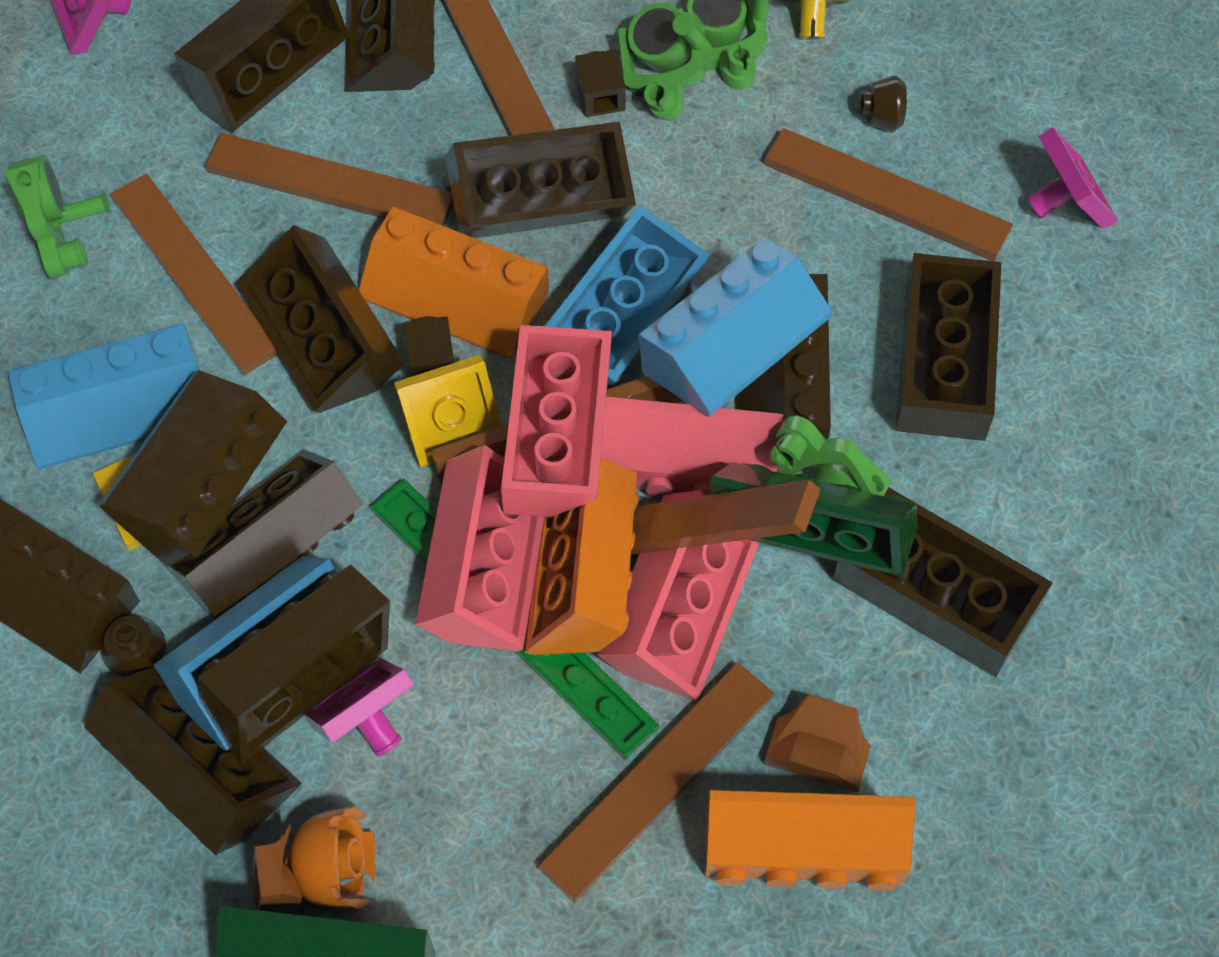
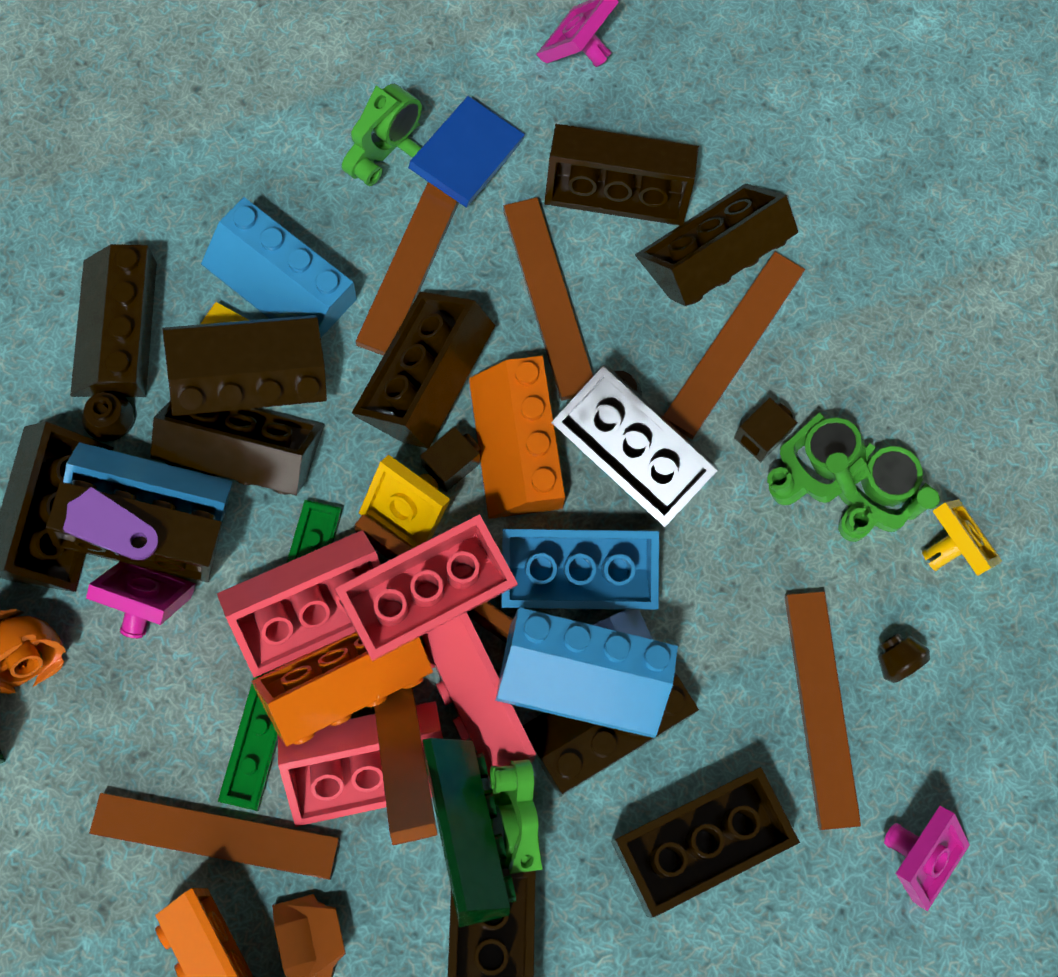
camera: 50 degrees right, 10 degrees up
(124, 161) = (466, 151): none -> blue tile
(282, 655) = (108, 525): none -> medium lavender piece

